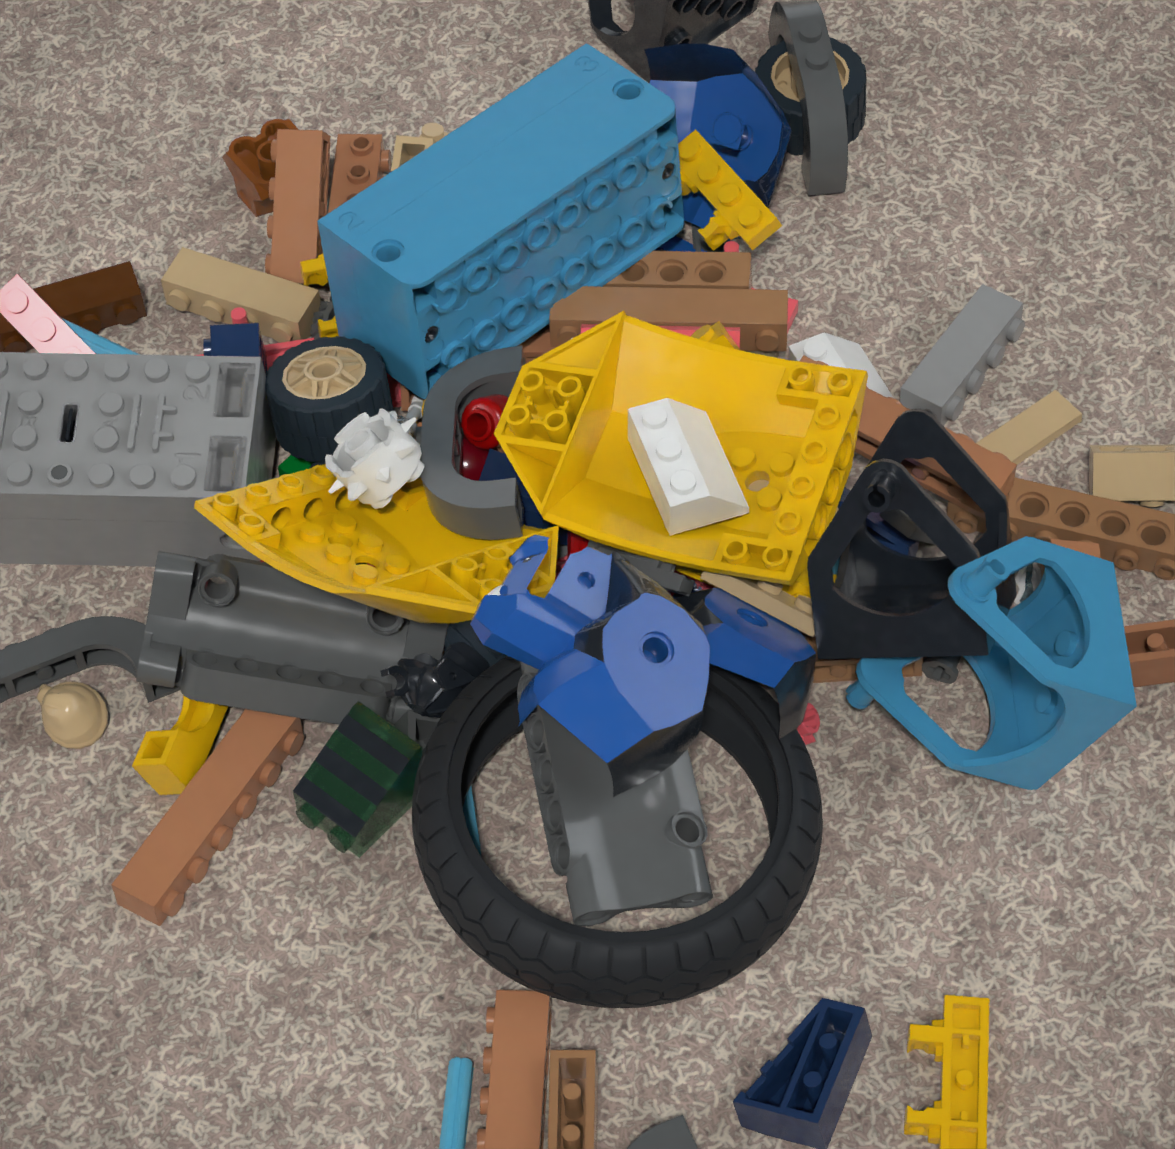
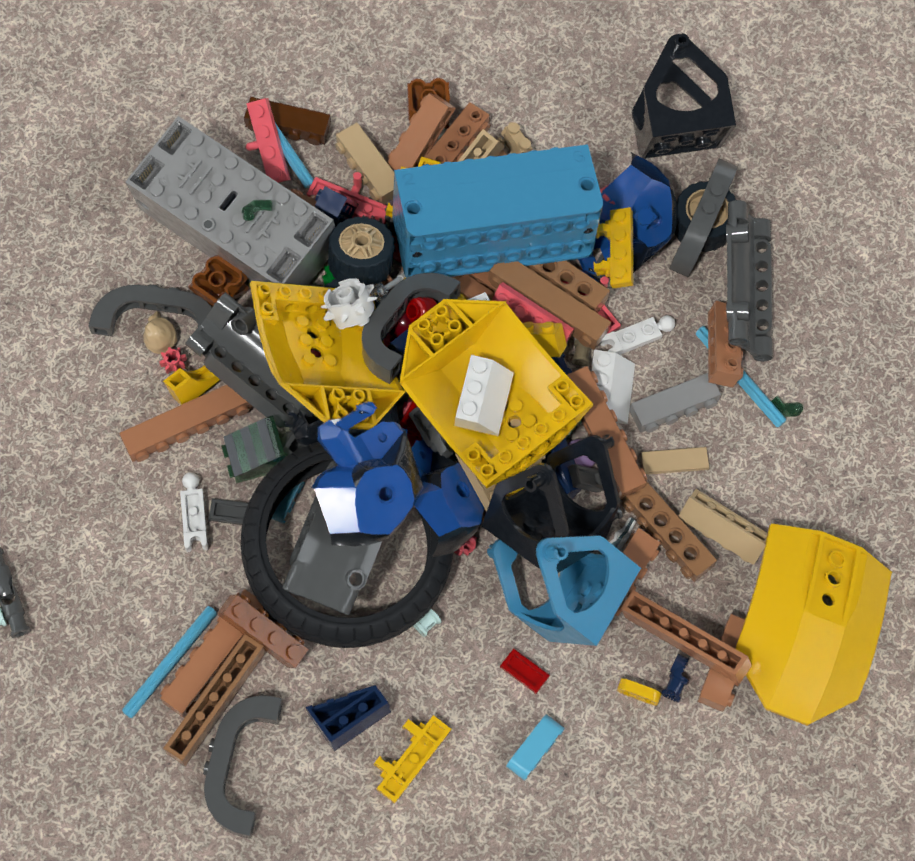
camera: 25 degrees right, 15 degrees up
(117, 576) = (217, 279): none -> dark orange piece
(121, 735) = (174, 365): none -> coral gear
(124, 399) = (254, 206): none -> clear green arm
(323, 938) = (193, 512): none -> white plate
(385, 901) = (227, 511): none -> dark grey tile
(545, 1020) = (257, 626): none -> dark orange brick
(828, 871) = (427, 622): none -> light aqua bush
(834, 299) = (638, 334): none -> white plate
(944, 131) = (744, 238): none -> dark grey panel
(974, 236) = (723, 358): none -> nougat brick
(1028, 273) = (751, 389): none -> medium azure axle
(1034, 851) = (524, 671): none -> red tile
(1130, 278) = (788, 409): none -> clear green arm
(1140, 946) = (534, 747): none -> medium azure beam

